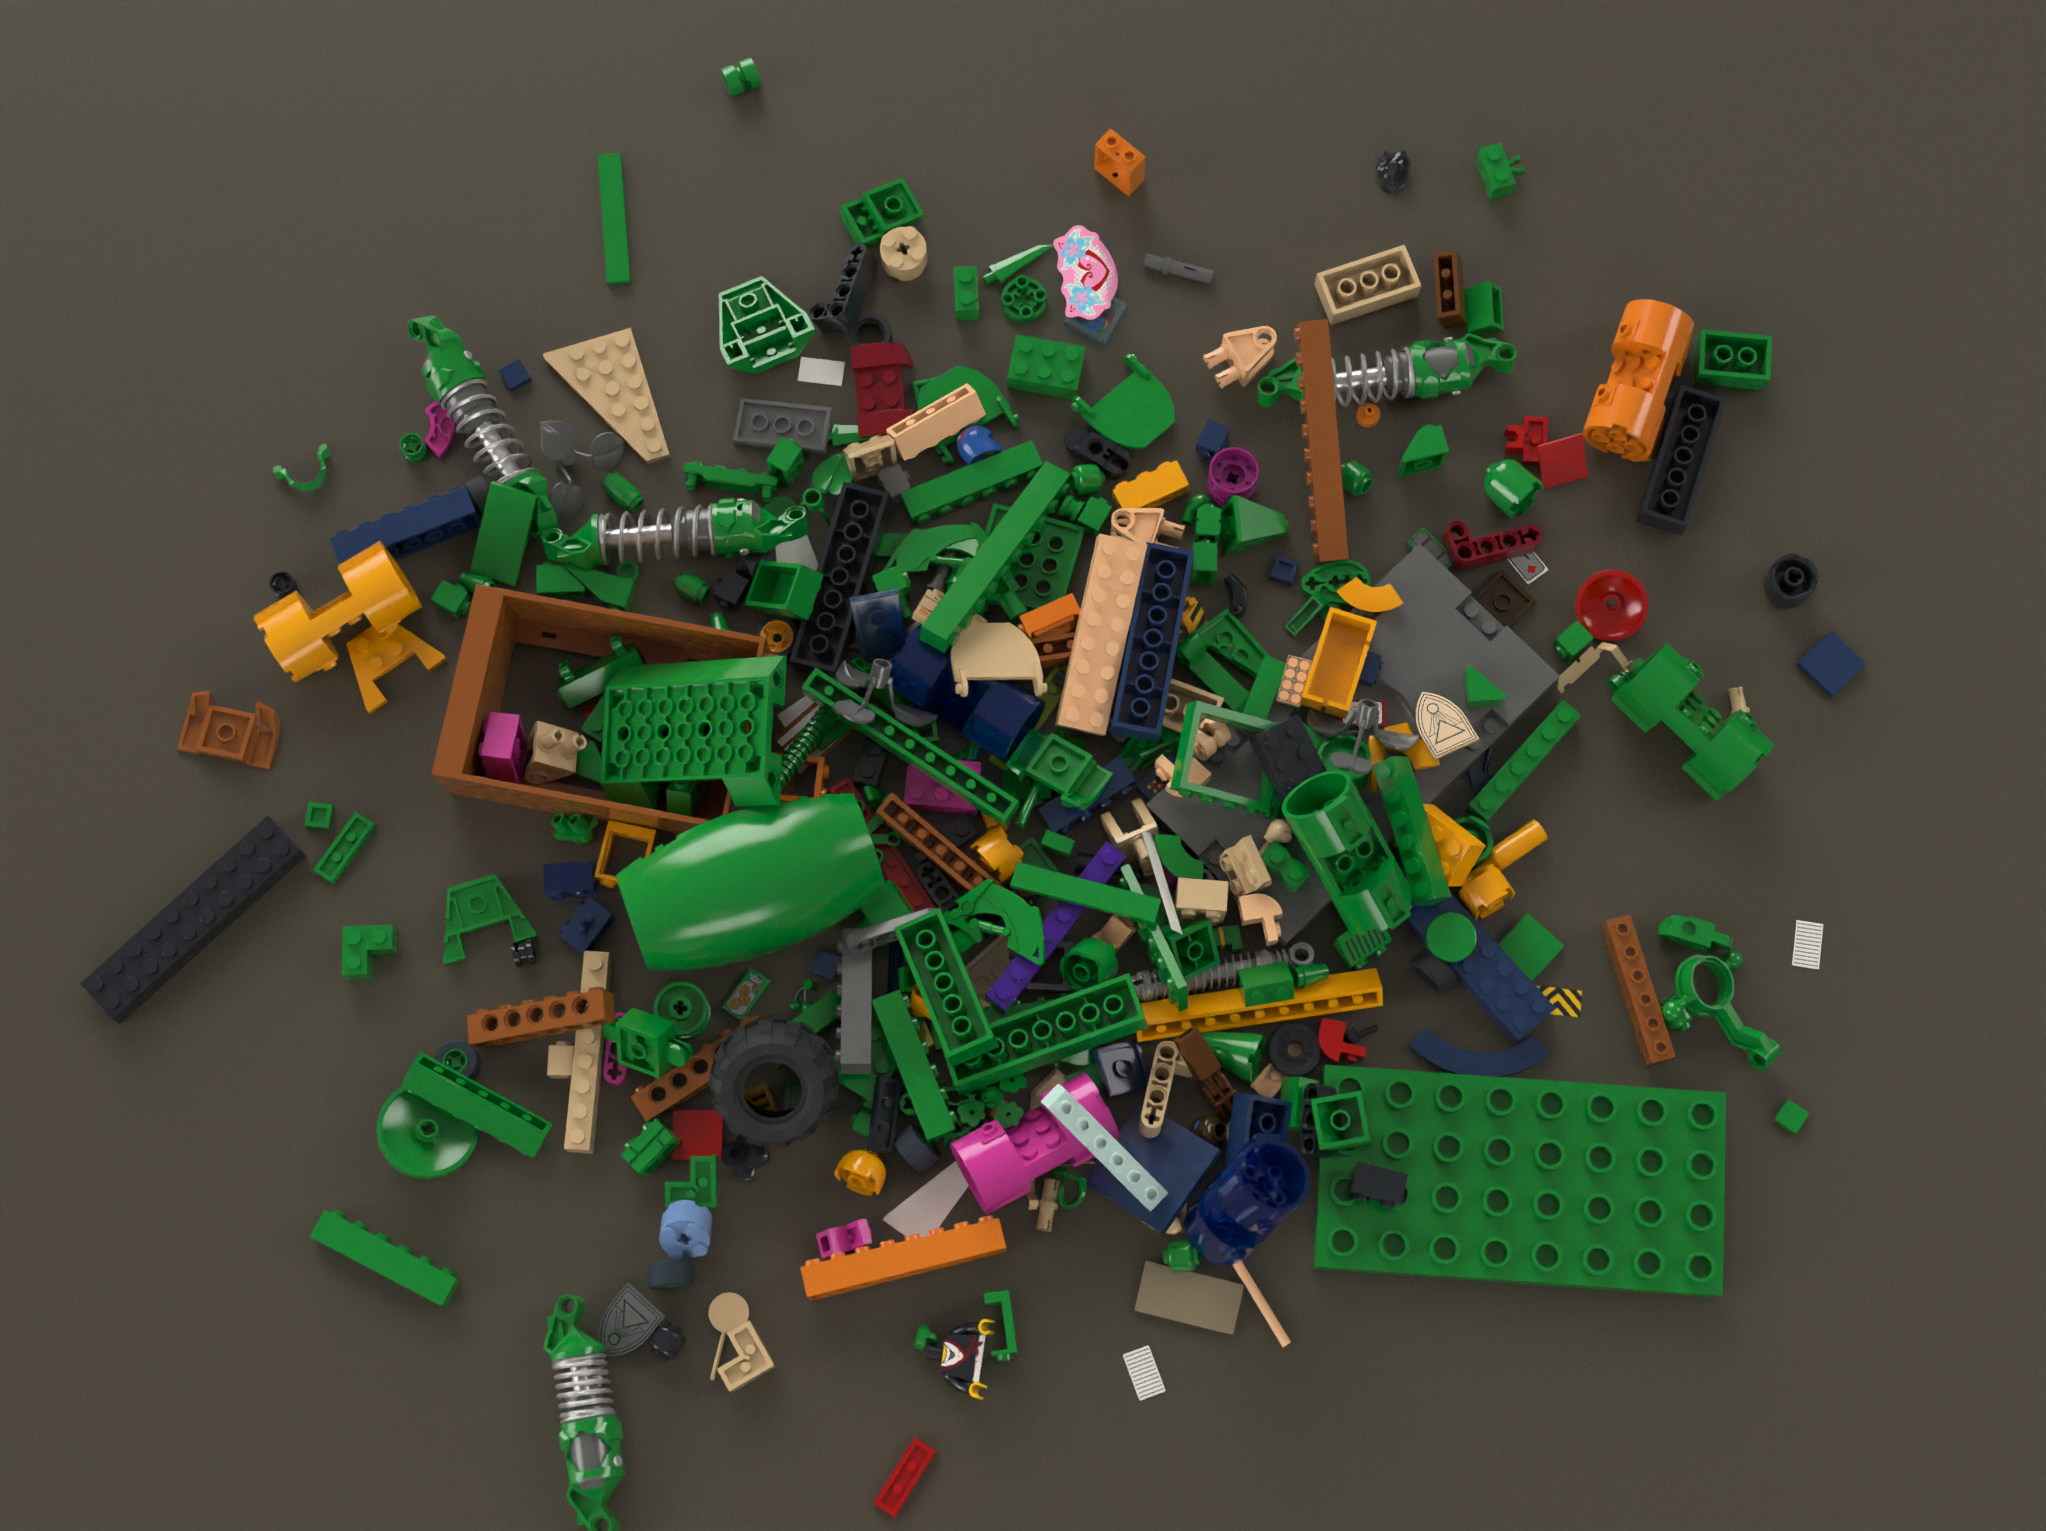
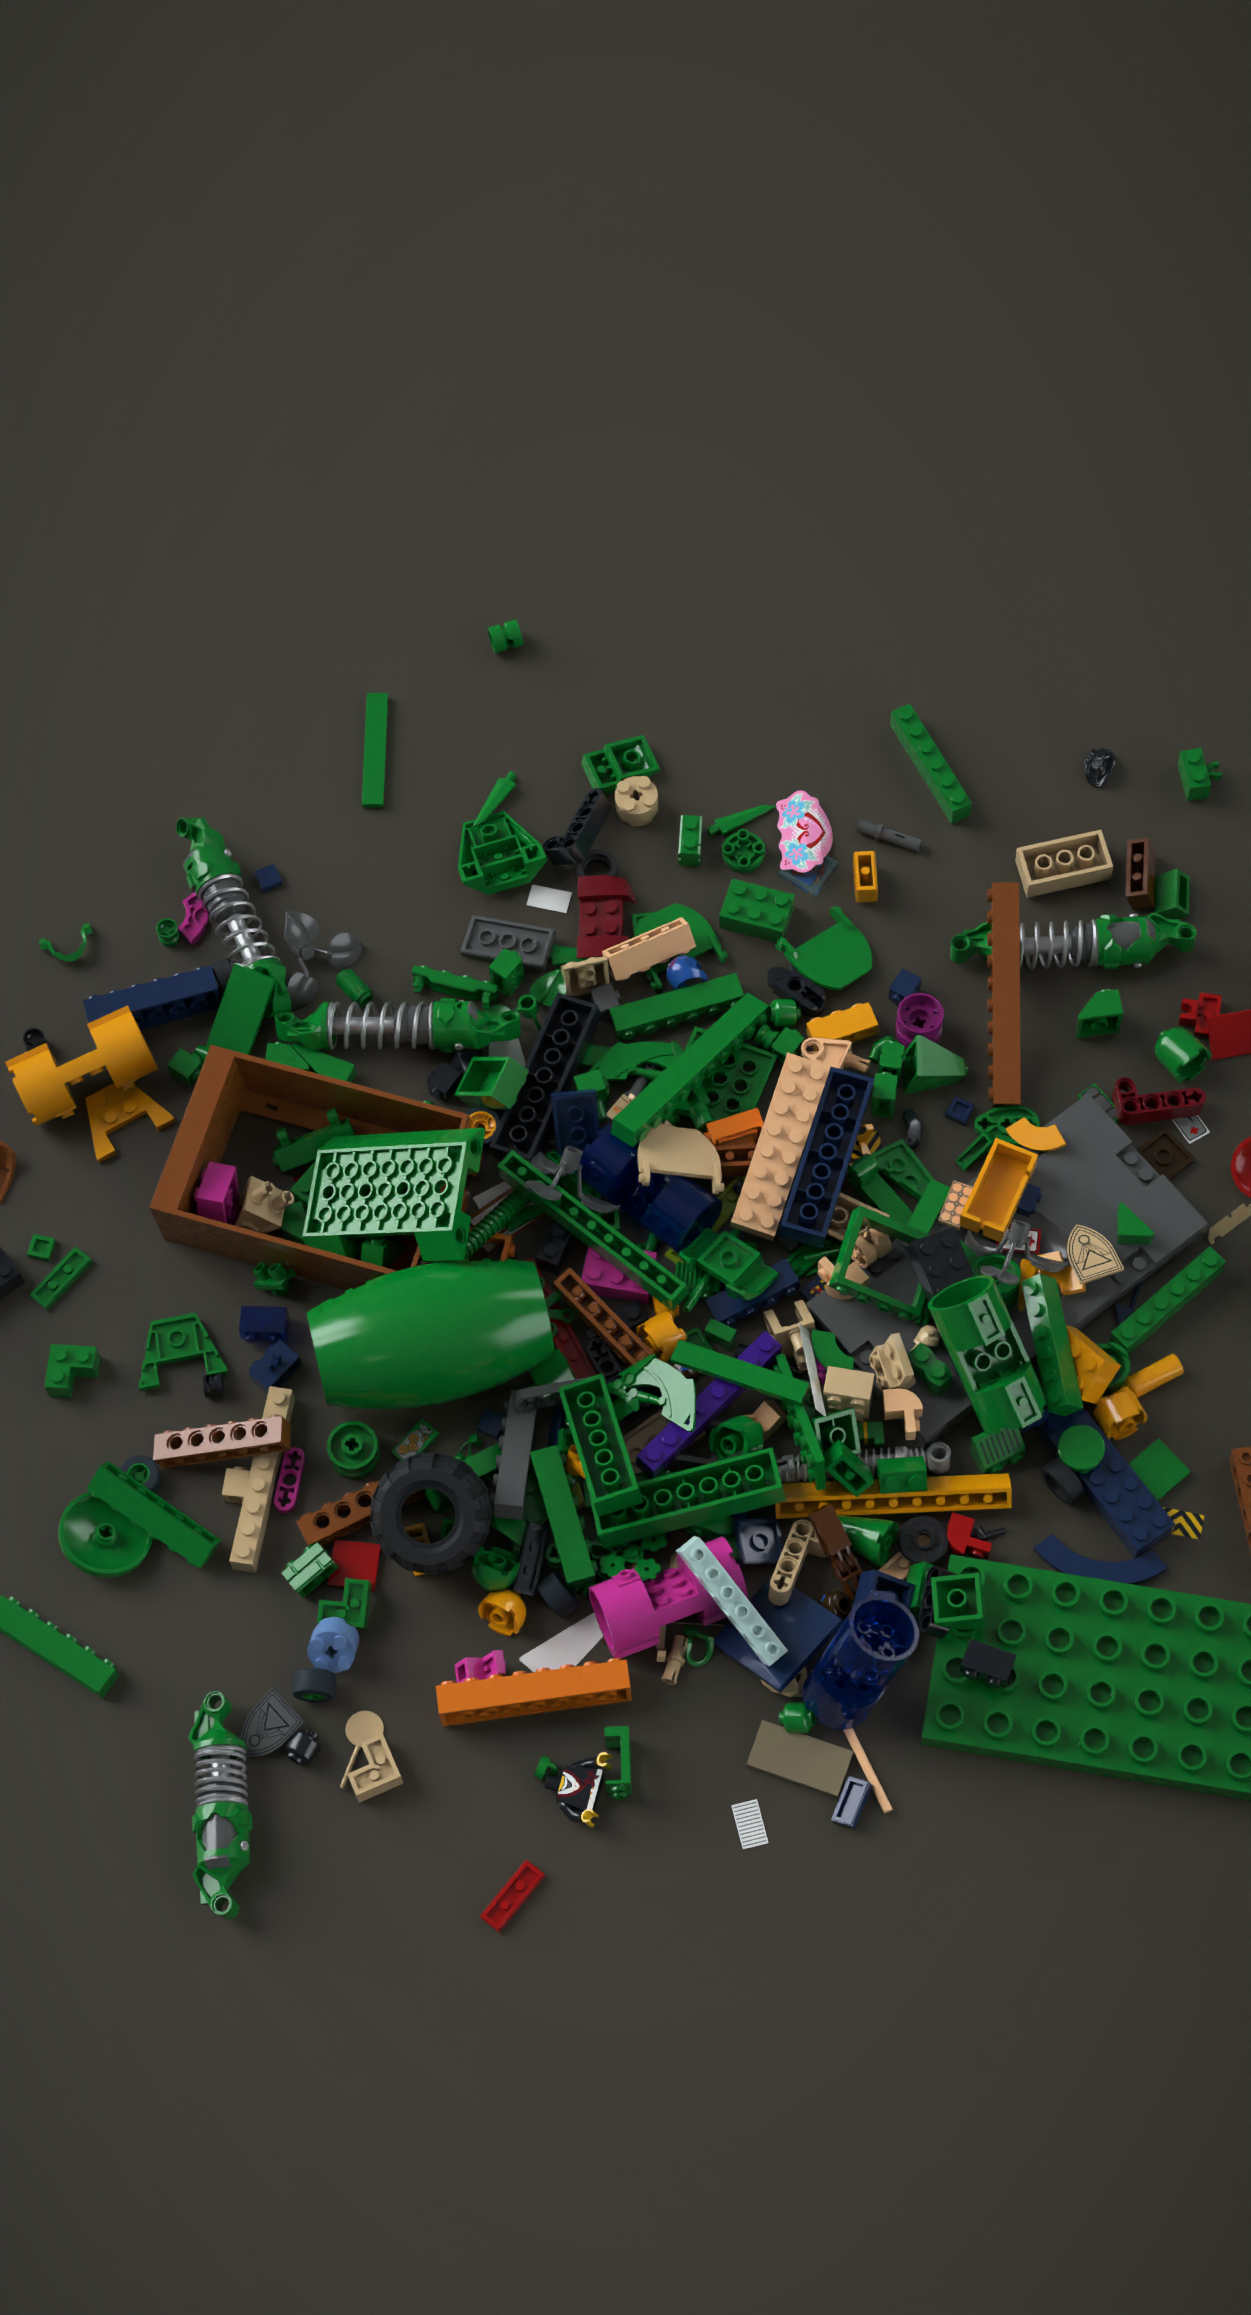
camera: 10 degrees right, 10 degrees down
(614, 384) = (358, 893): tan wing -> none
(626, 831) = (317, 1285): light orange window -> none
(628, 570) = (352, 1056): green tile -> none
(647, 1043) = (317, 1472): green brick -> none
(691, 587) = (407, 1076): green brick -> none
(749, 1157) = (400, 1587): black plate -> none
(756, 253) = (498, 794): none -> green bar
(848, 1130) = (494, 1568): none -> green cylinder
(874, 796) = (552, 1273): green piece -> none
(1128, 165) = (850, 739): orange window -> none
(1158, 318) = (865, 876): none -> light orange brick
(1210, 985) = (848, 1468): none -> green brick
(1214, 183) = (930, 763): none -> green brick
(1243, 353) = (941, 914): light nougat piece -> none
(1247, 1340) = (851, 1802): none -> tile
(1308, 974) = (942, 1471): green cone -> none
(1356, 478) = (1035, 1033): green head -> none
(1368, 415) = (1053, 979): orange tile -> none
(1572, 641) = (1225, 1197): green brick -> none

